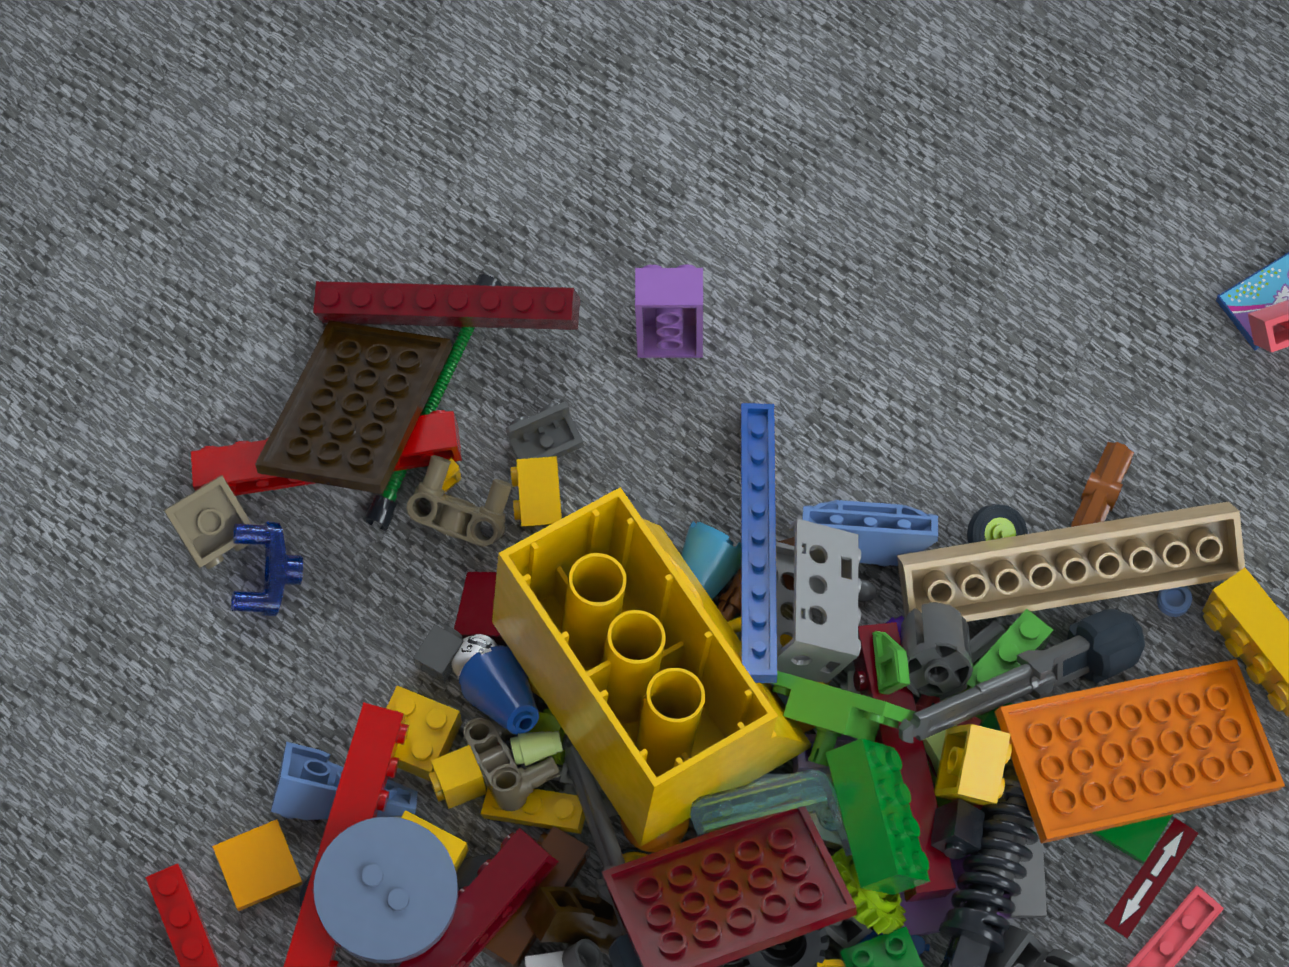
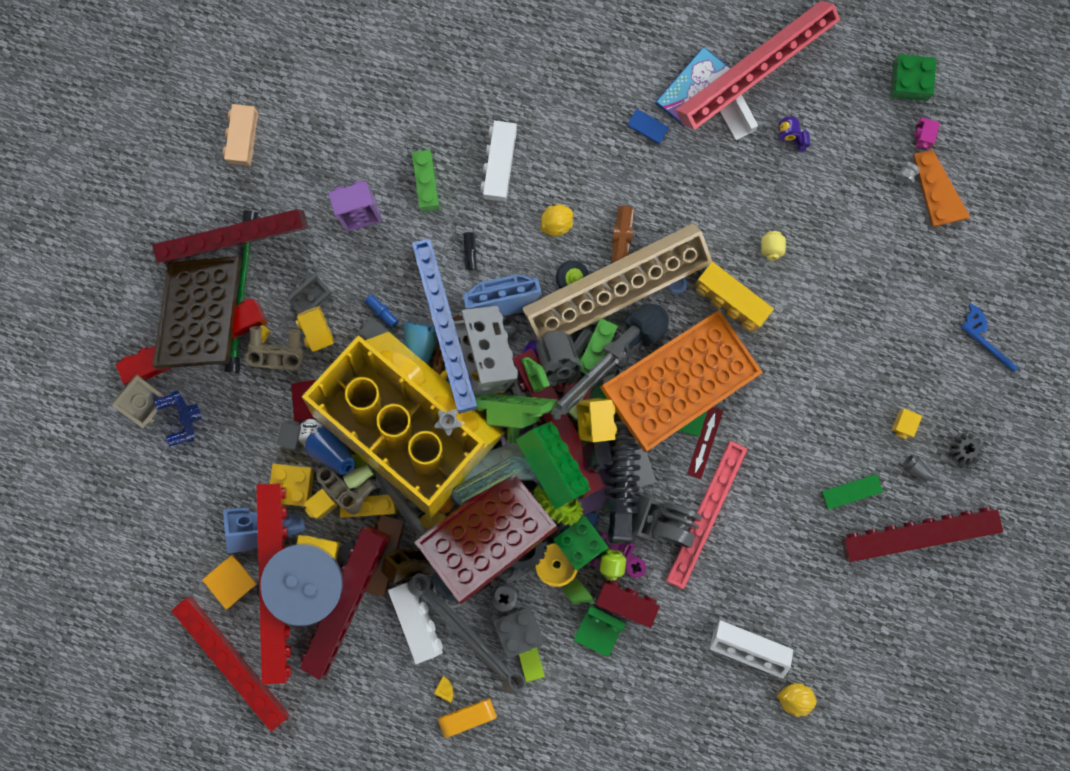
camera: 15 degrees left, 15 degrees up
(513, 158) = (240, 135): none -> light nougat brick
(657, 498) = (381, 311): none -> blue pin
(733, 656) = (444, 416): none -> light grey plate
(795, 312) = (425, 181): none -> bright green brick
(835, 444) = (470, 251): none -> black axle
(927, 315) = (500, 161): none -> white brick
(996, 436) = (556, 220): none -> yellow hair
(1193, 332) = (648, 126): none -> blue tile

